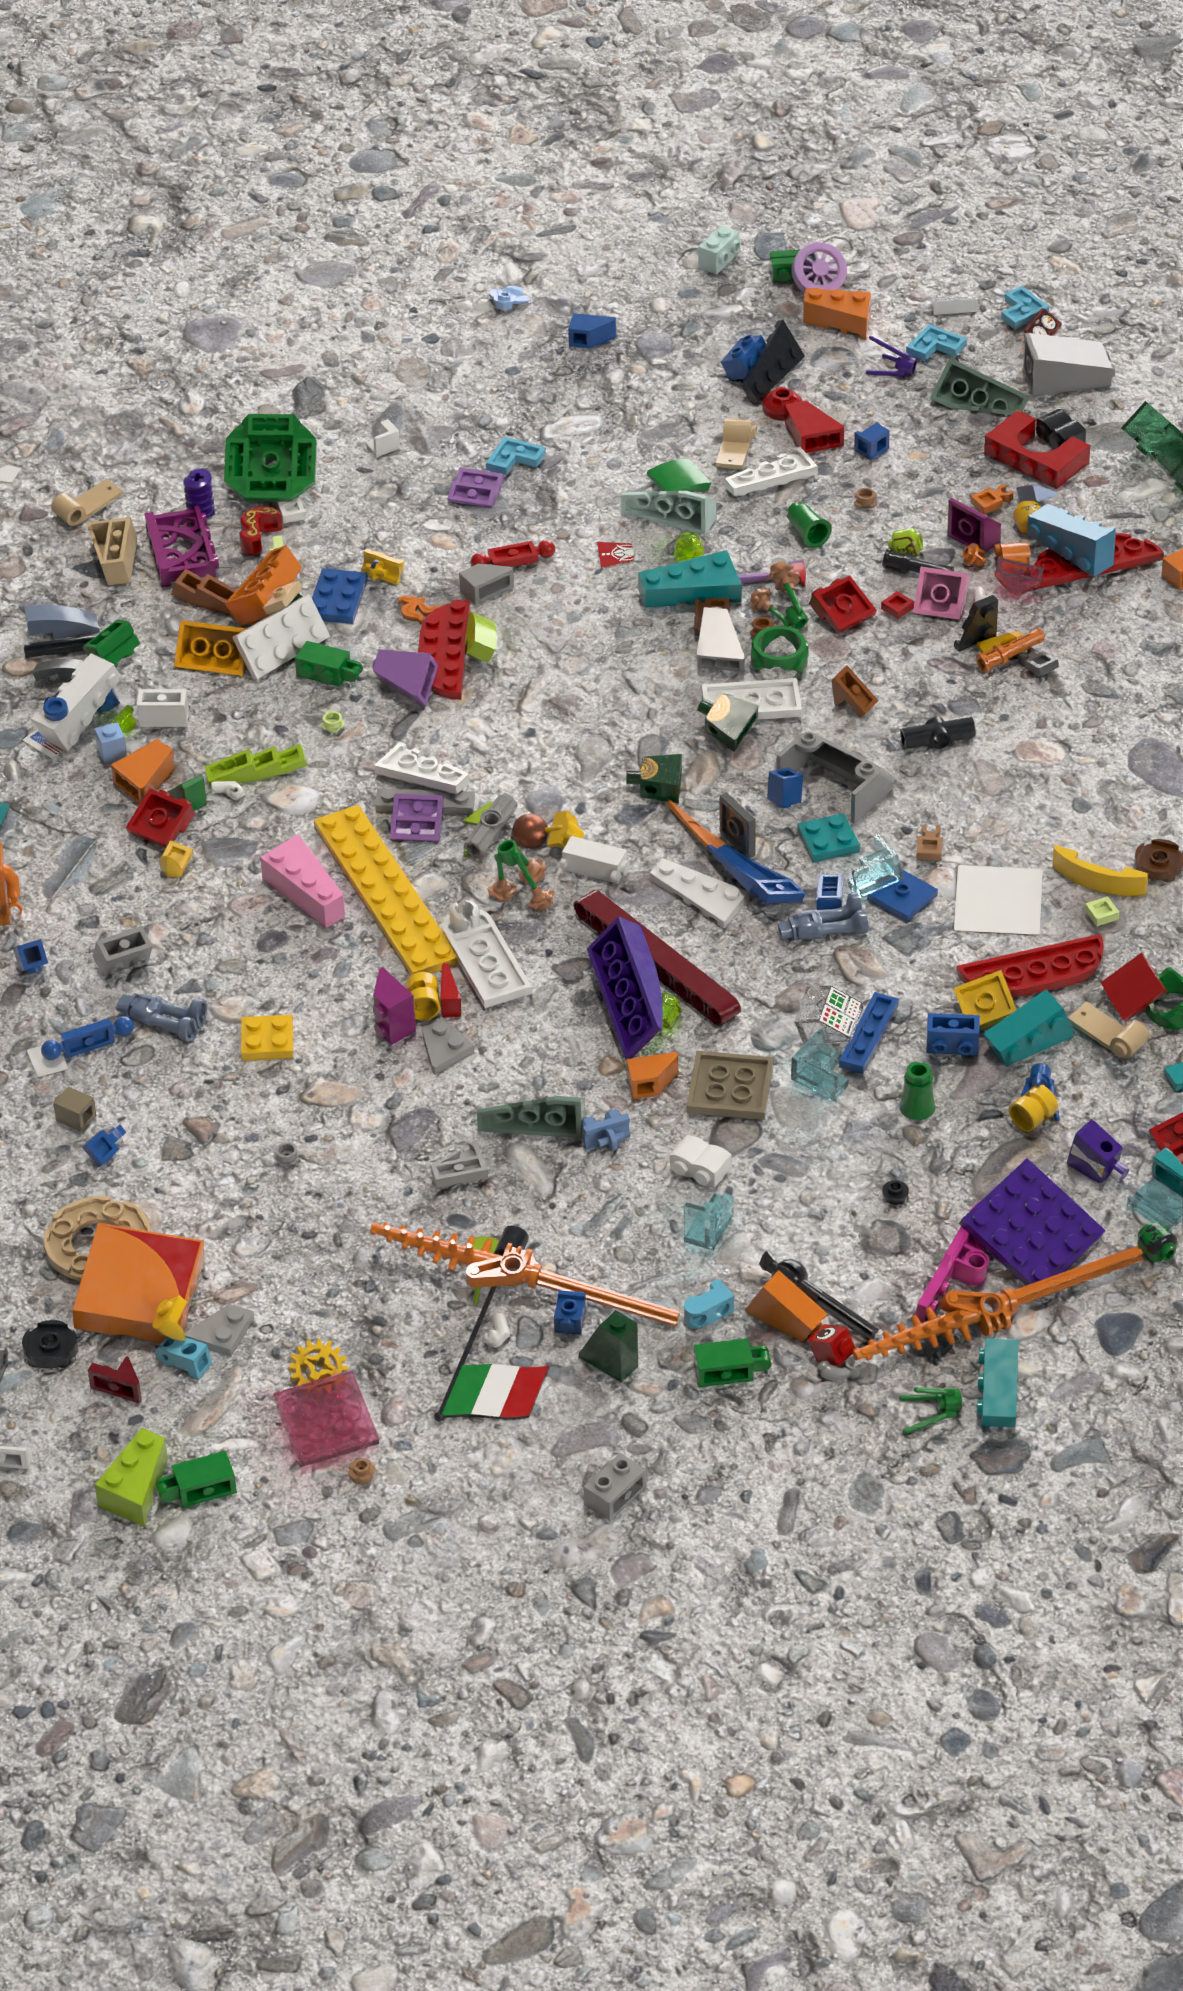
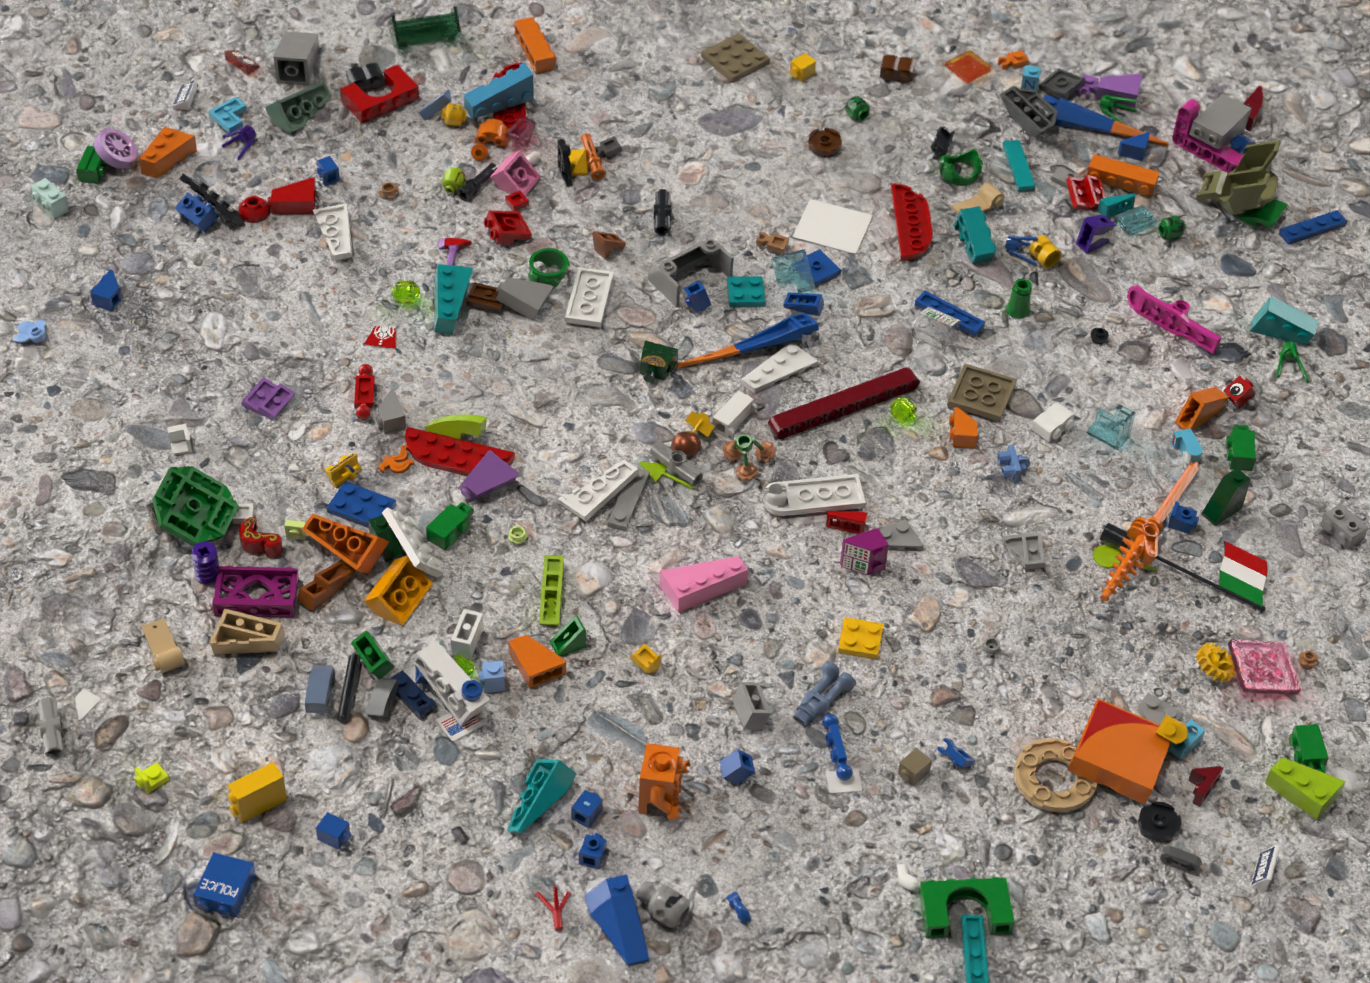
camera: 80 degrees left, 5 degrees up
(160, 817) = (597, 659): red plate -> none
(230, 788) = (570, 611): white arm -> none
(282, 597) = (379, 526): tan plate -> none
(385, 890) = (719, 540): yellow plate -> none
(416, 817) = (649, 505): medium lavender slope -> none
(426, 995) = (847, 530): yellow wheel -> none
(500, 1333) = (1191, 560): white arm -> none
(513, 451) = (238, 367): medium azure plate -> none
(544, 1117) = (993, 483): sand green wedge -> none
(628, 984) = (889, 416): dark purple slope -> none
(672, 508) = (359, 287): light aqua wedge -> none
(678, 476) = (316, 281): green slope -> none
(728, 719) = (616, 309): torso -> none
(736, 443) = (283, 241): tan door -> none
(737, 825) = (732, 327): dark grey plate -> none
(760, 624) = (509, 272): dark orange plate -> none
(784, 580) = (482, 238): nougat plant -> none
(797, 1273) = (1175, 398): black piece -> none
(809, 525) = (407, 223): green plant -> none
(813, 924) = (834, 317): sand blue piece -> none
(814, 1066) = (975, 349): clear light blue panel -> none
(953, 1034) = (969, 270): blue brick -> none
(968, 1308) = (1220, 314): orange piece -> none
(971, 526) = (454, 143): magenta slope -> none
(987, 998) = (942, 249): yellow plate -> none
(990, 500) = (422, 130): orange plate -> none
(1023, 309) = (212, 59): medium azure plate -> none
(1032, 1225) = (1156, 274): dark purple plate -> none
(1098, 878) = (819, 181): yellow slope -> none
(1102, 911) = (866, 179): yellowish green plate -> none
(1133, 987) = (949, 178): red slope -> none

